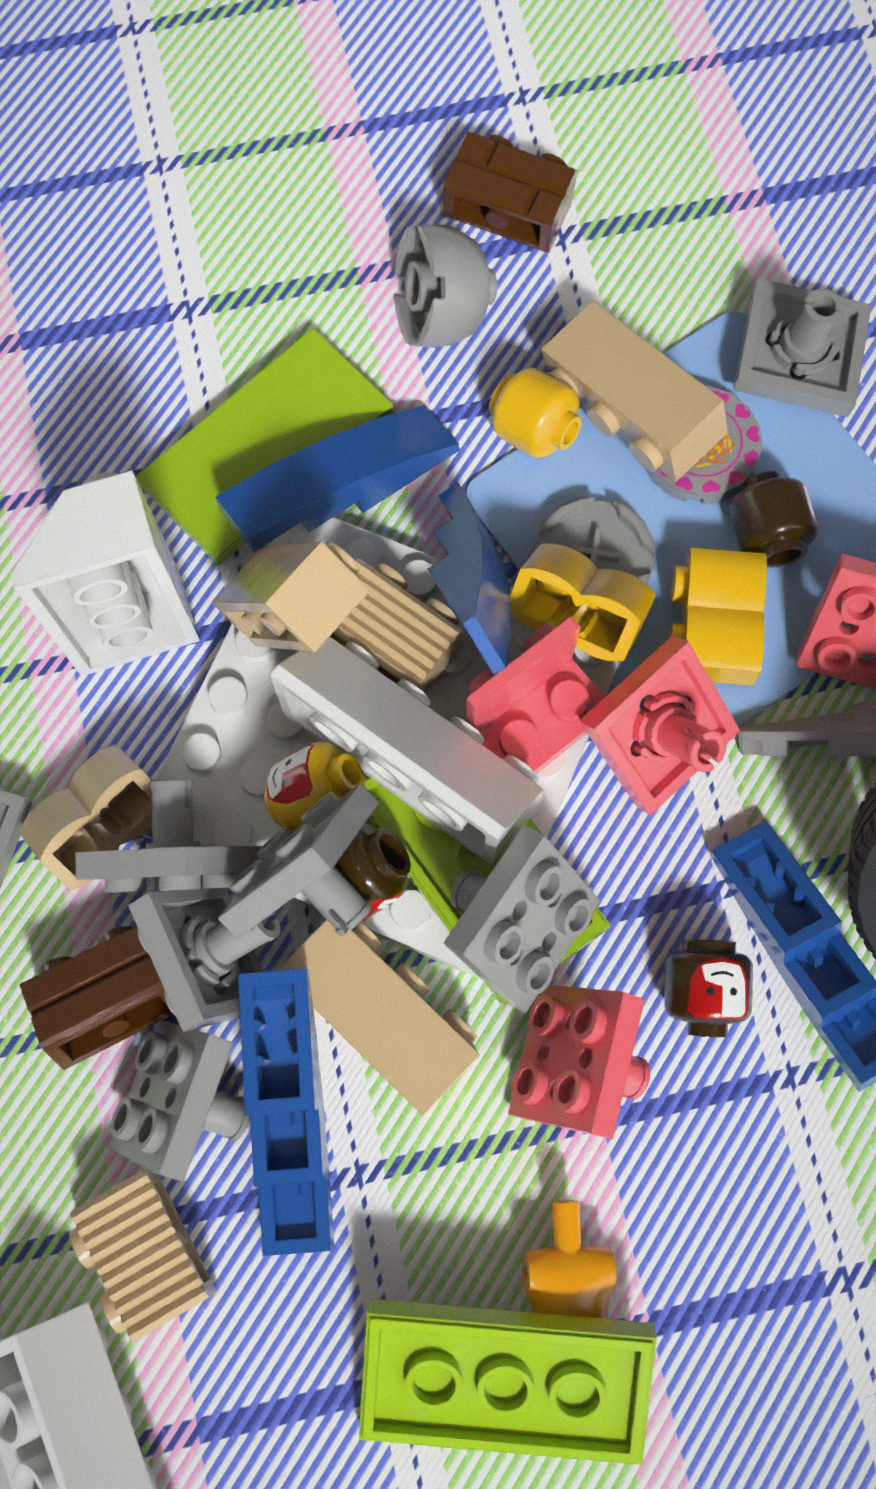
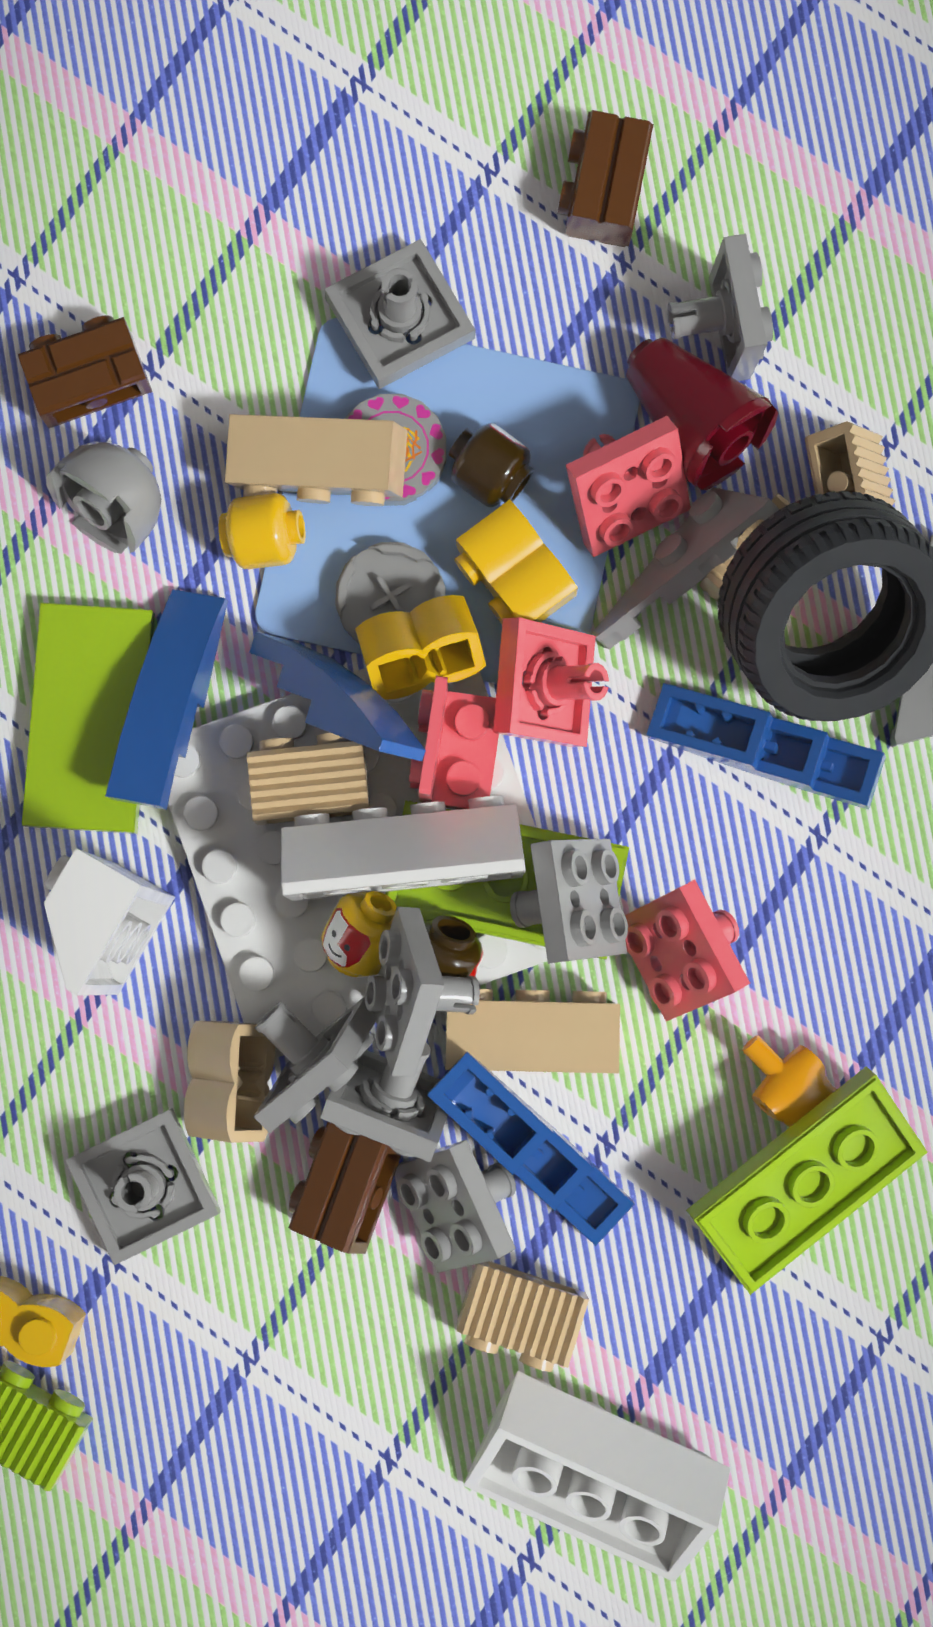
camera: 50 degrees left, 10 degrees up
(292, 595) = (235, 823): tan brick -> none
(708, 986) = (721, 827): head -> none

